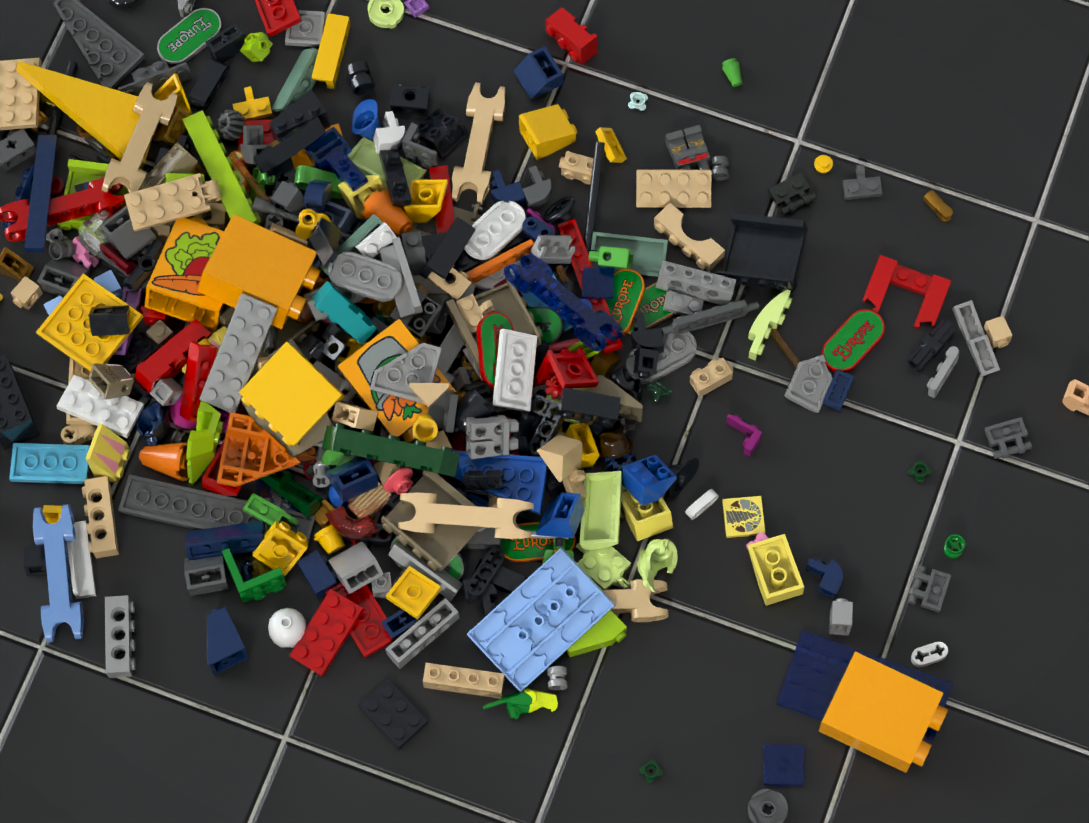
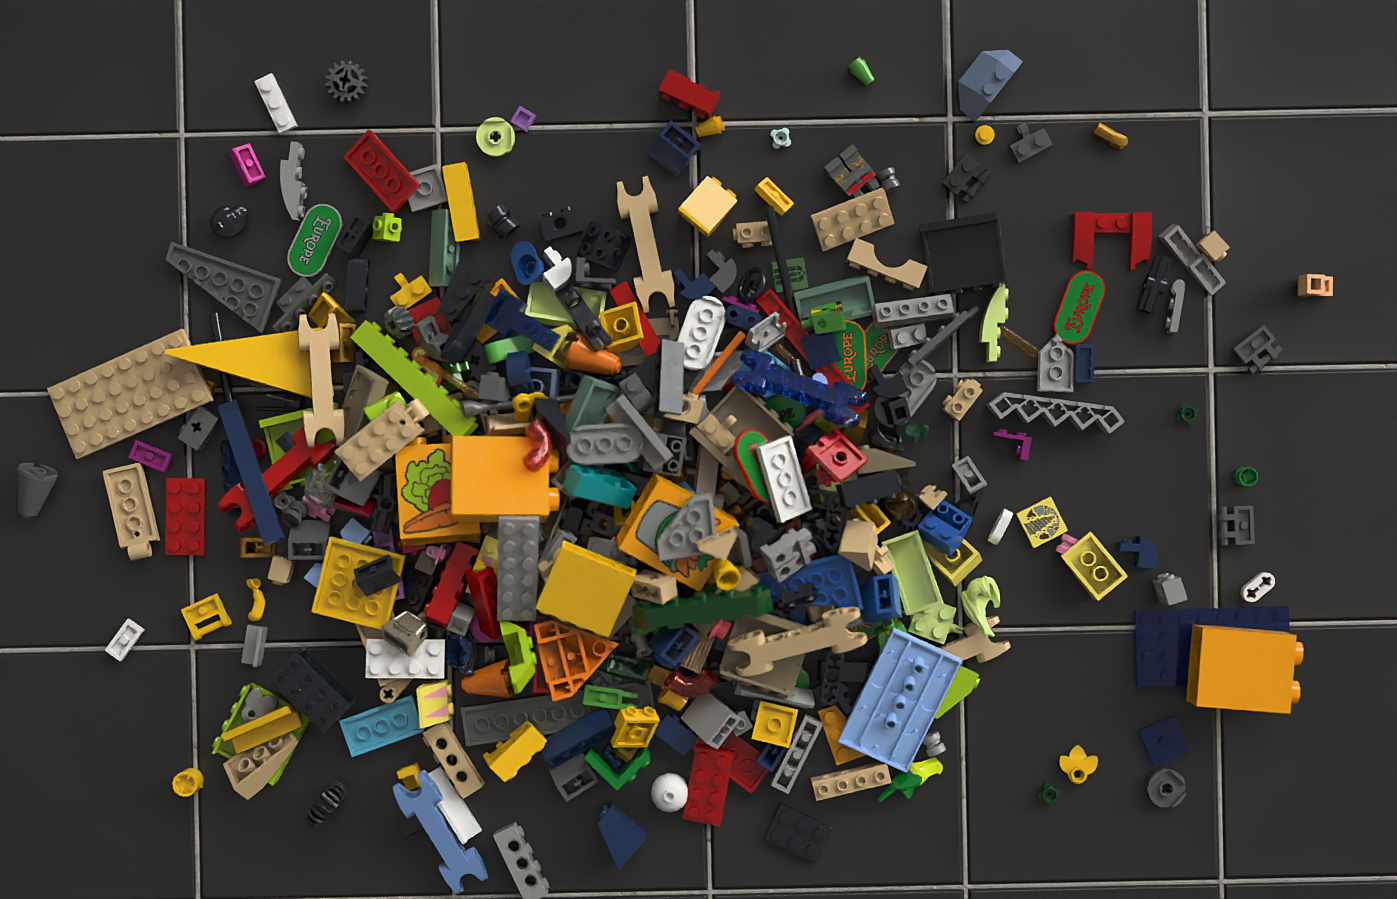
camera: 25 degrees left, 20 degrees up
(162, 526) = (516, 751): none -> yellow wedge
(174, 324) = (439, 551): none -> bright pink hinge
(308, 251) = (540, 446): none -> clear red cylinder
(378, 239) = (599, 402): white plate -> none
(468, 652) = (833, 723): none -> light orange wing
(579, 69) = (710, 127): none -> yellow cone
(604, 217) = (797, 273): none -> clear green piece
(643, 449) = (930, 498): none -> tan hinge
(690, 446) = (969, 475): none -> light grey slope
(691, 752) = (1078, 761): none -> yellow plate
(794, 418) = (1055, 411): none -> light grey brick
(842, 120) = (985, 80): none -> sand blue wedge

